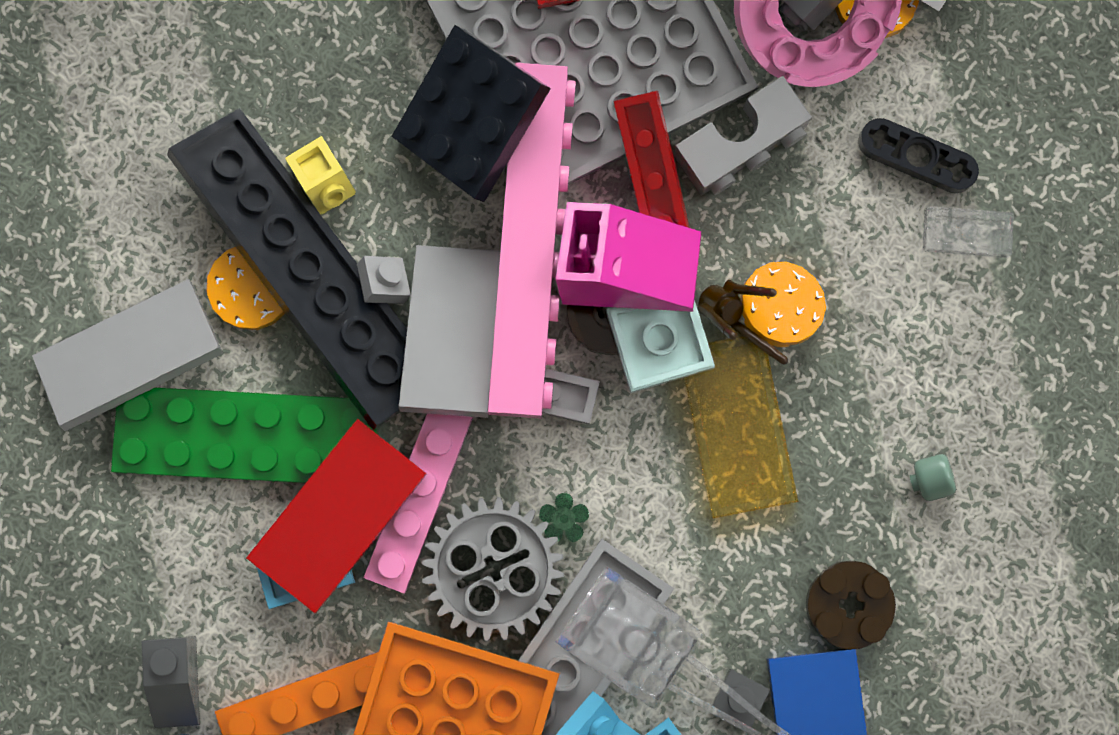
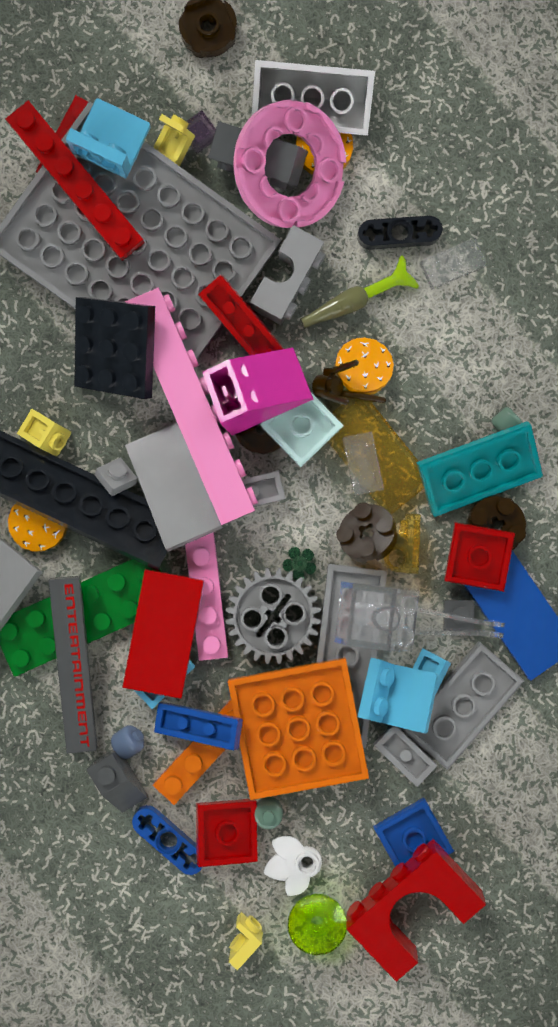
camera: 30 degrees left, 5 degrees up
(197, 495) = (73, 664): none -> dark grey tile
(213, 636) = (127, 742): none -> sand blue piece
(318, 662) = (198, 725): none -> blue plate
(667, 503) = (360, 519): none -> dark brown plate
(715, 430) = (363, 463): none -> clear plate
(732, 551) = (410, 531): none -> clear yellow plate
(806, 633) = (479, 556): none -> red tile
(820, 211) = (357, 297): none -> olive piece
(867, 518) = (480, 469): none -> teal tile

